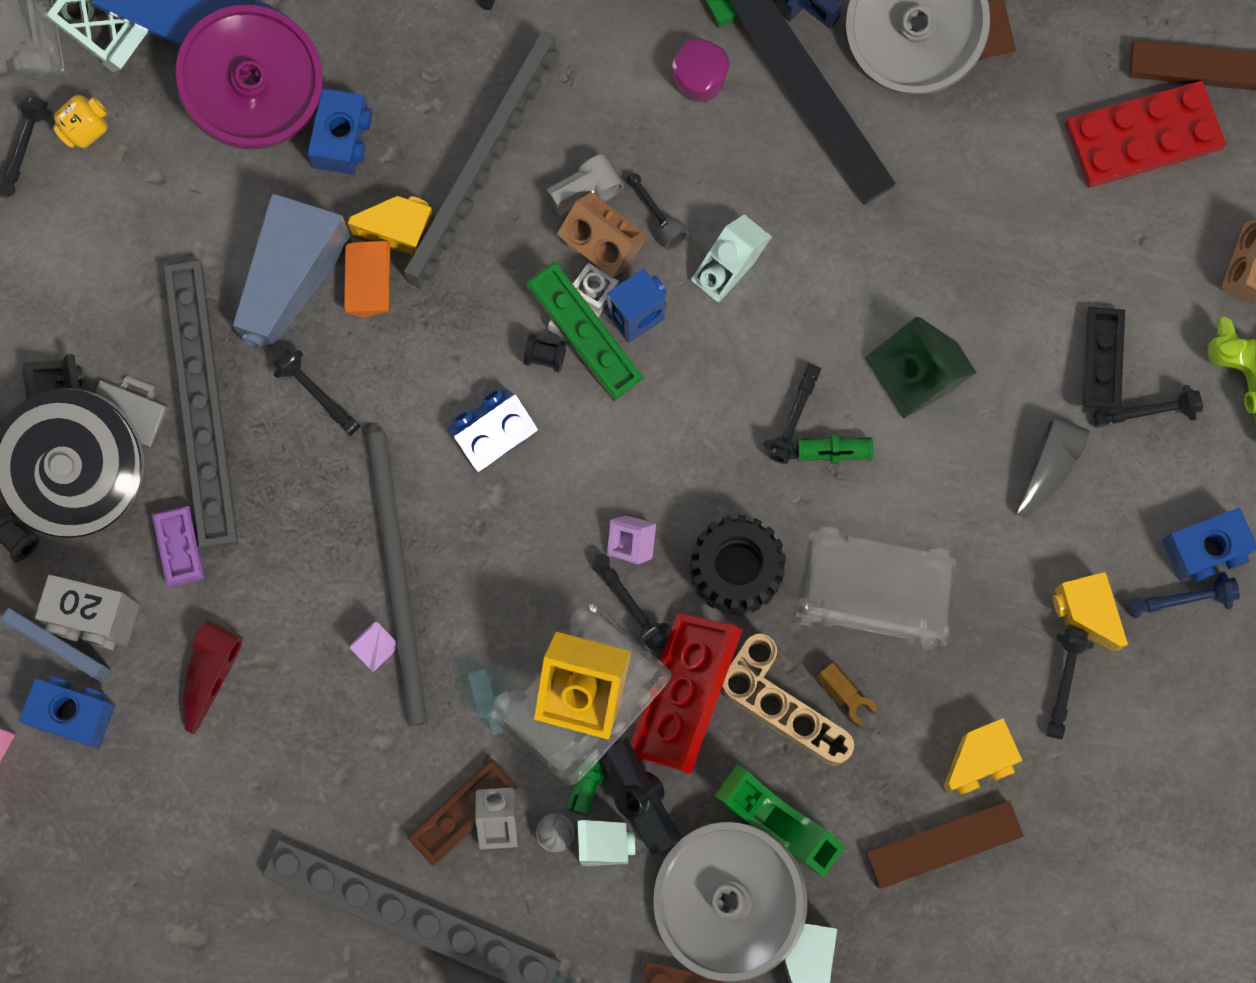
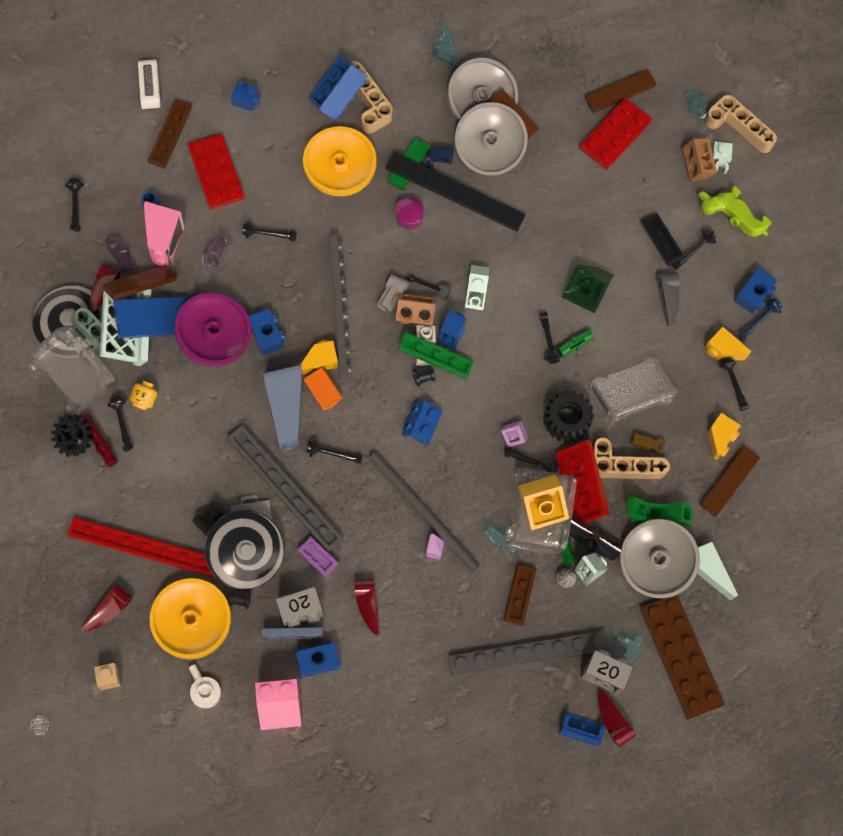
camera: 40 degrees left, 5 degrees down
(496, 818) = (538, 587): light grey bracket -> none

